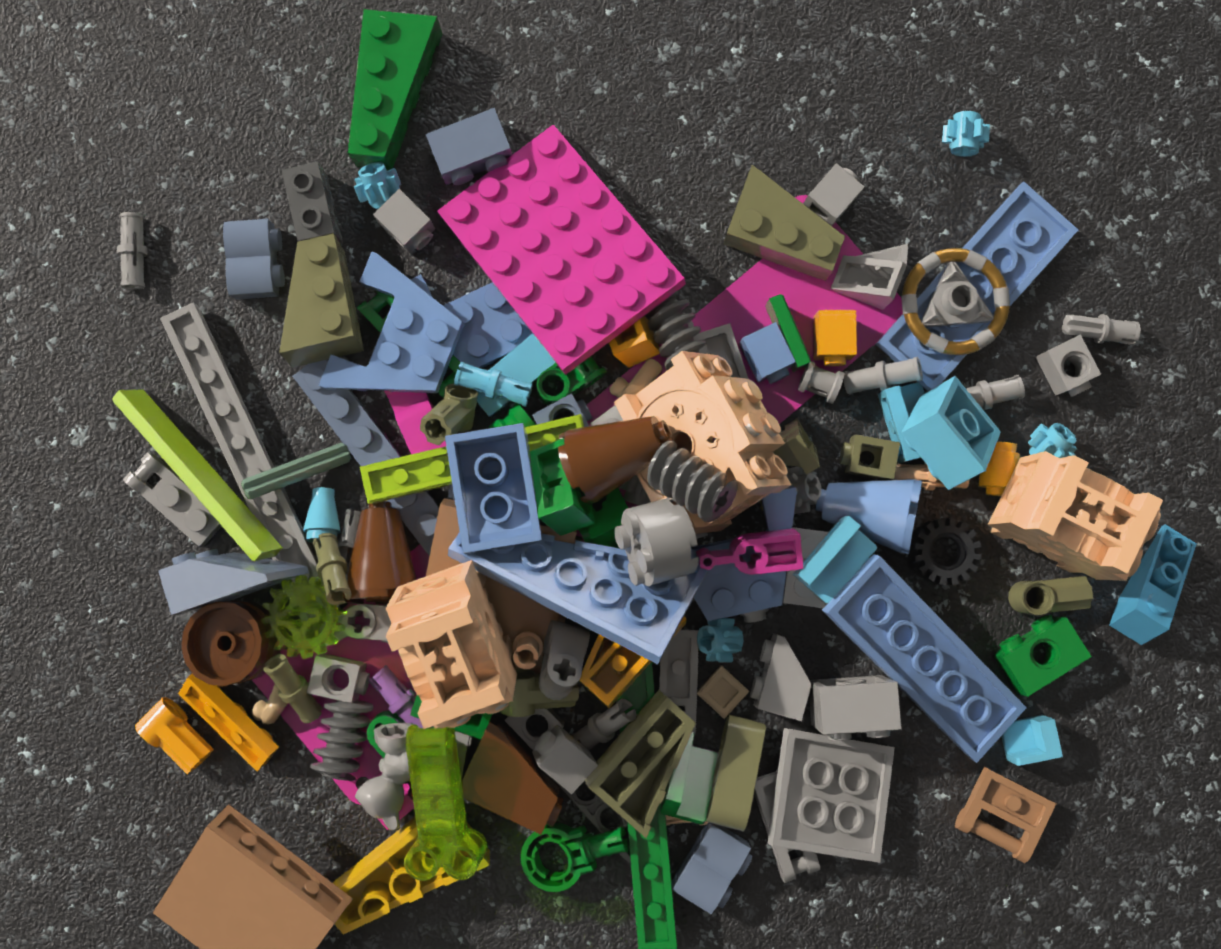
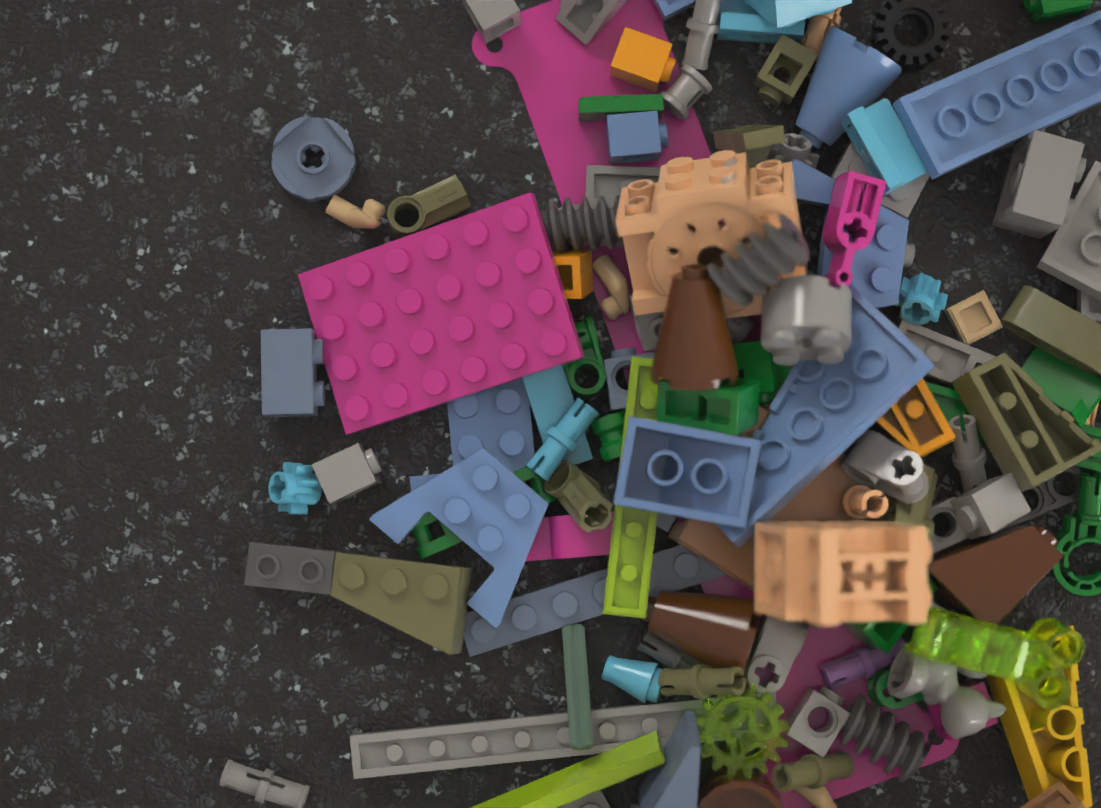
camera: 75 degrees left, 0 degrees up
(252, 259) = (325, 654): sand blue brick -> none
(389, 75) = (178, 431): green wedge -> none
(620, 160) = (355, 217): none -> tan arm
(646, 82) = (314, 134): none -> sand blue plate
(649, 209) = (431, 205): none -> olive piece
(782, 229) = (506, 72): olive wedge -> none
(783, 683) = (987, 250): light grey slope -> none

